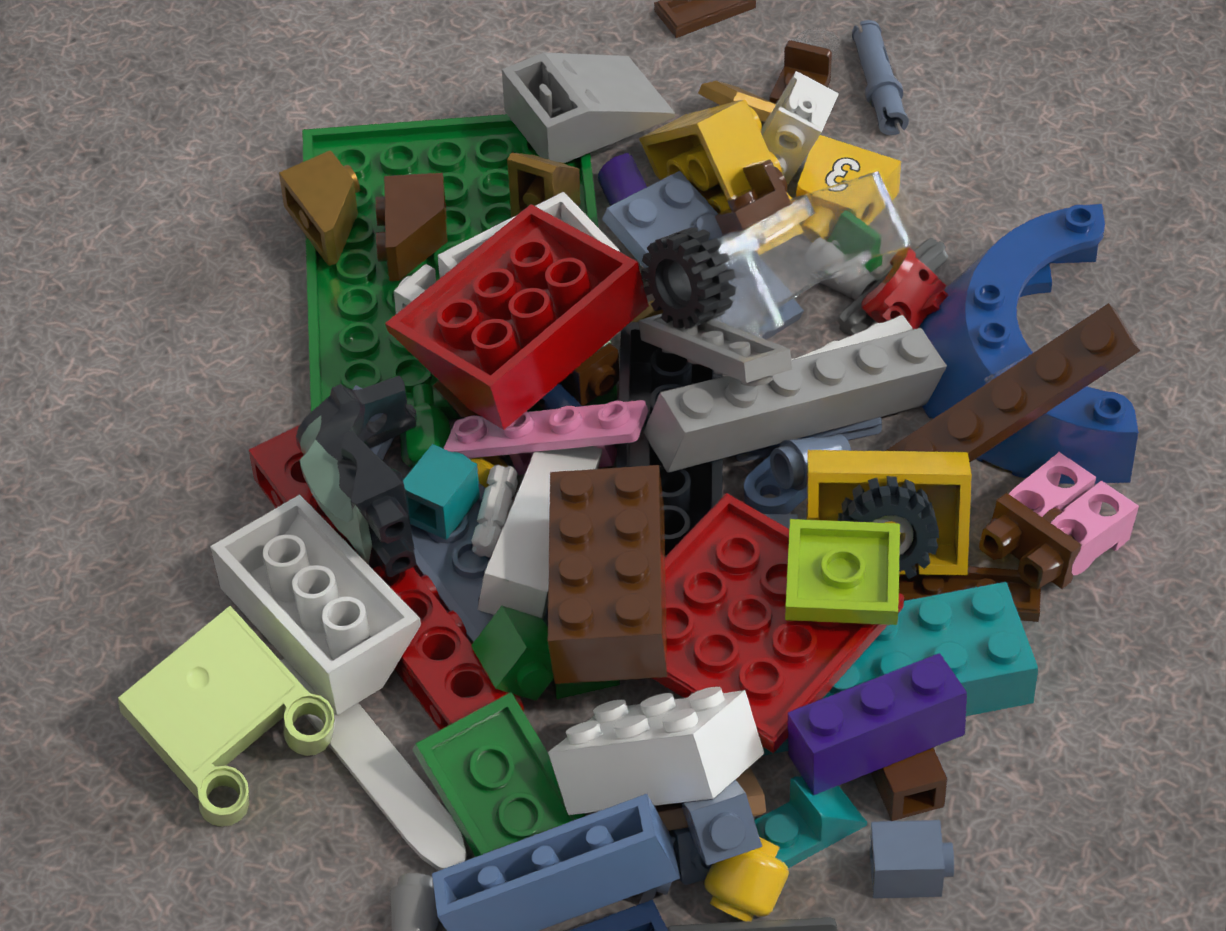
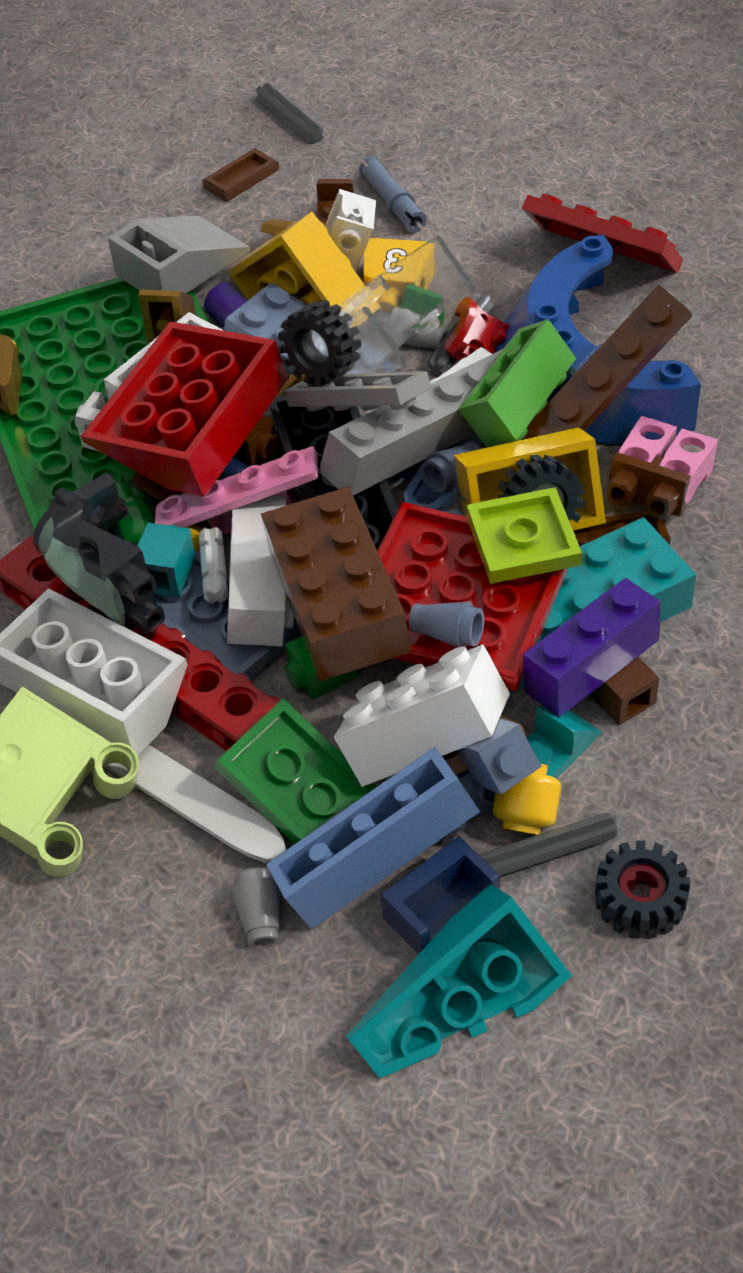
camera: 15 degrees left, 0 degrees up
(412, 221) = (71, 363): reddish brown slope -> none
(516, 653) = (274, 667): green brick -> none
(720, 655) = (451, 623): none -> sand blue cone
(755, 204) = (347, 280): reddish brown bracket -> none
(909, 859) = (649, 749): sand blue brick -> none
(914, 380) = (517, 384): none -> bright green brick
(1114, 196) = (578, 223): none -> red plate

